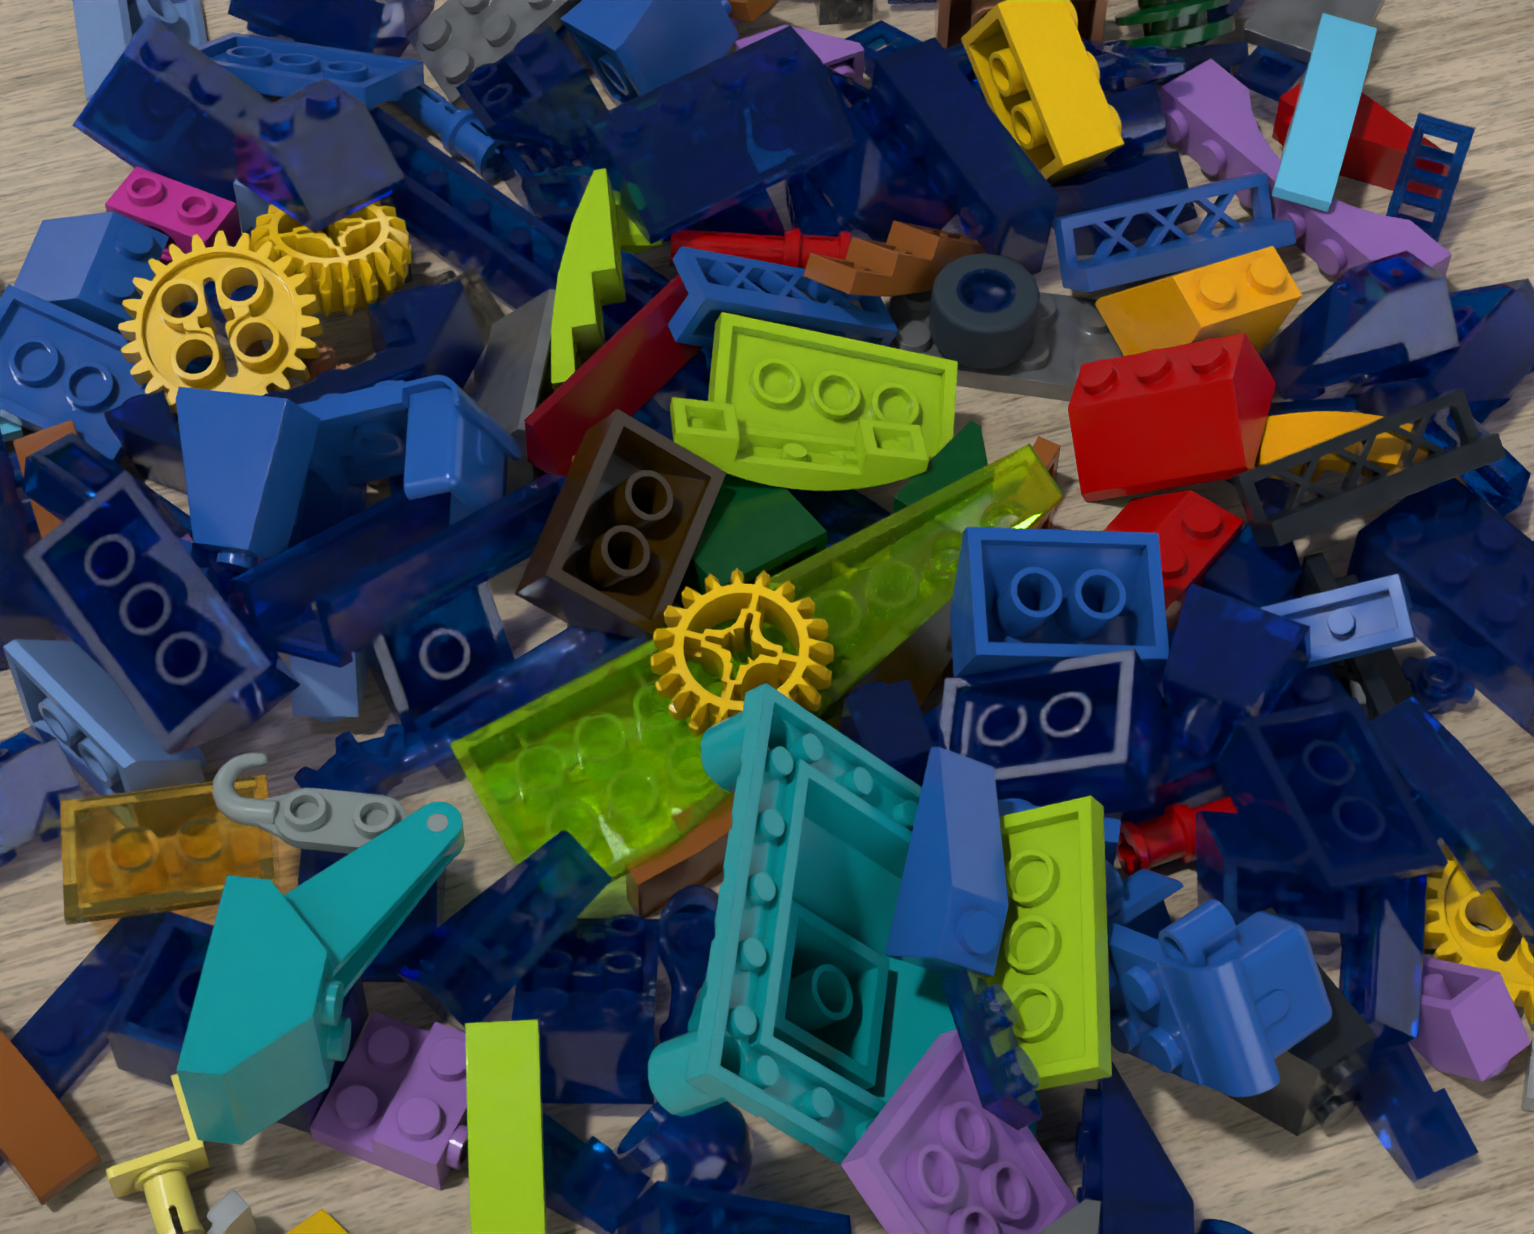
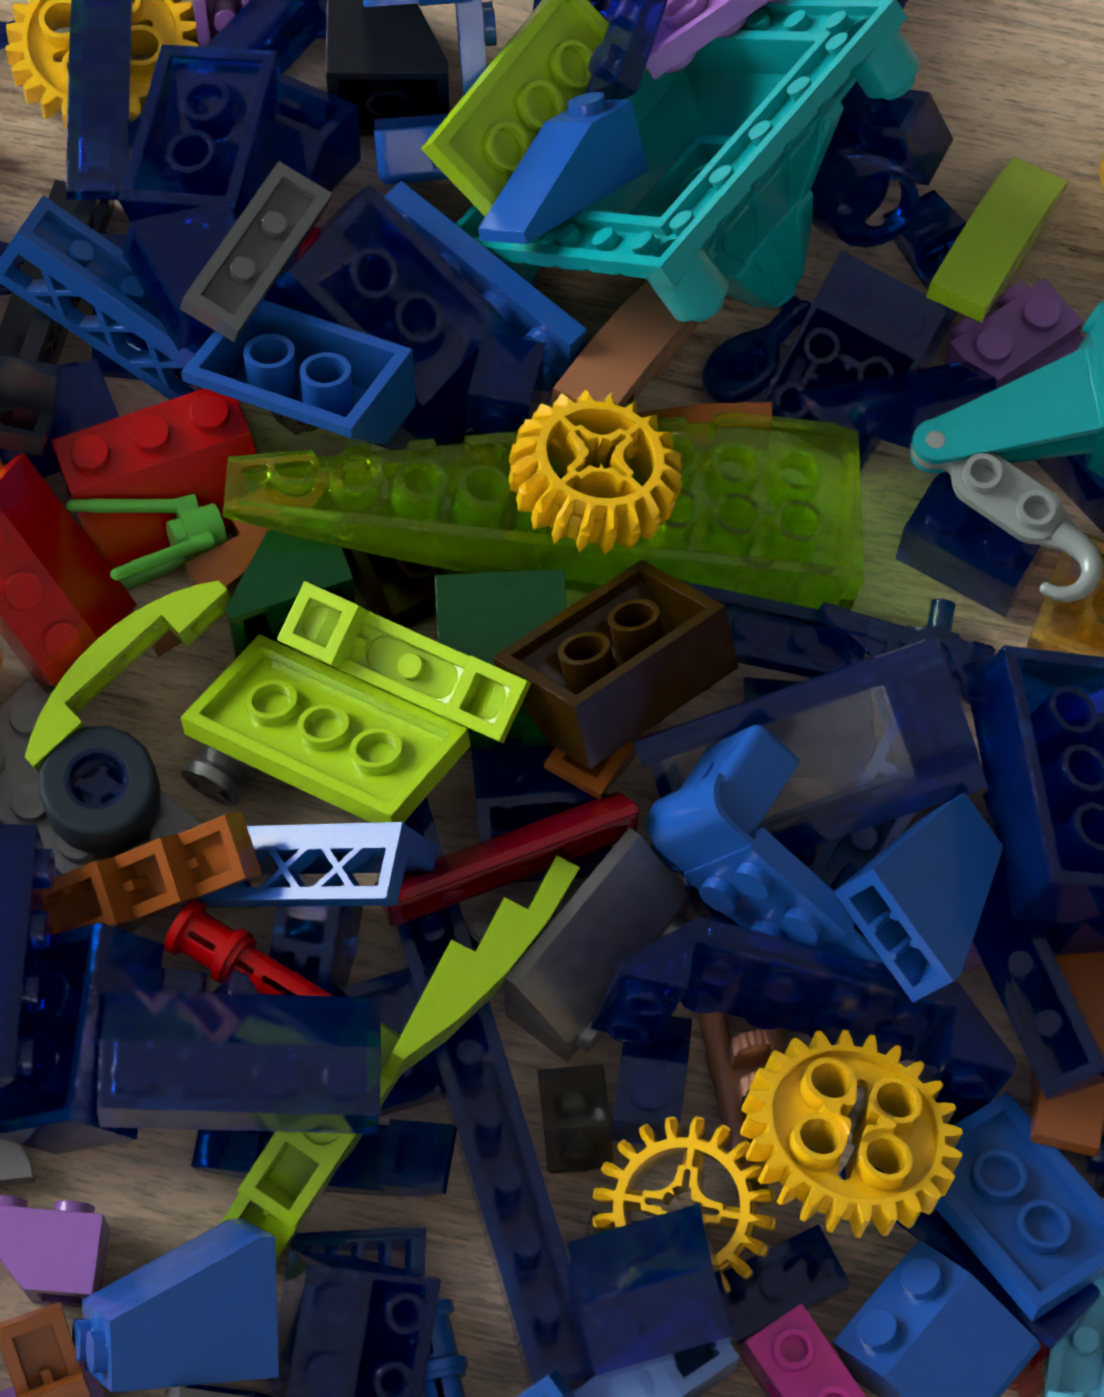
camera: 150 degrees left, 15 degrees up
(1033, 418) = (183, 612): none -> lime slope
(1078, 519) = (189, 534): none -> bright green plant
(1180, 664) = (256, 251): none -> dark grey plate

